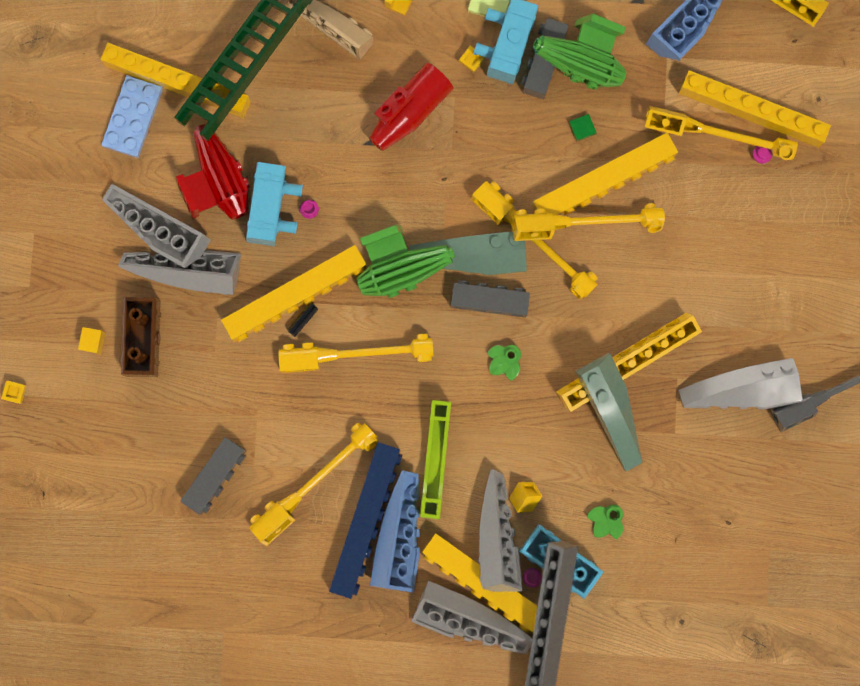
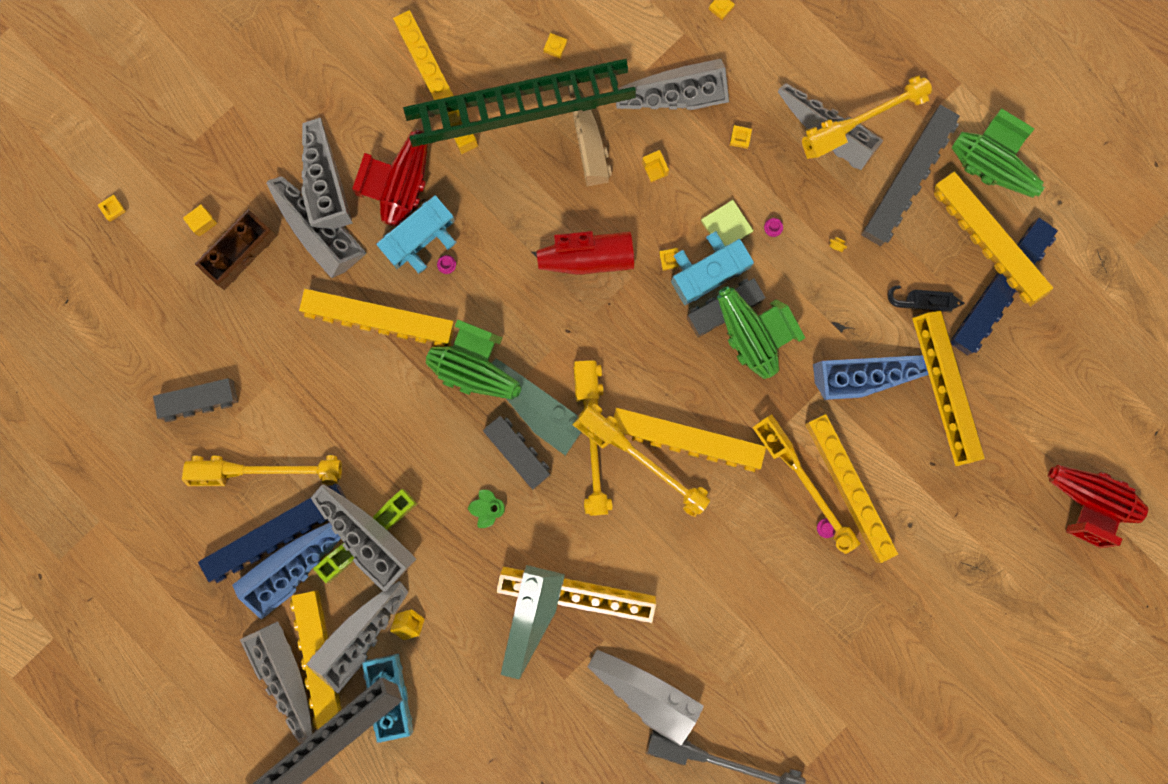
camera: 45 degrees right, 0 degrees up
(132, 116) = (381, 81): light blue plate -> none
(302, 319) = (366, 342): black axle -> none
(309, 357) = (345, 375): yellow bar -> none
(443, 461) = (370, 543): none -> light grey wedge
(532, 577) = (356, 688): dark pink plate -> none
(582, 127) = (707, 385): green piece -> none
(604, 523) = (449, 700): bright green plate -> none

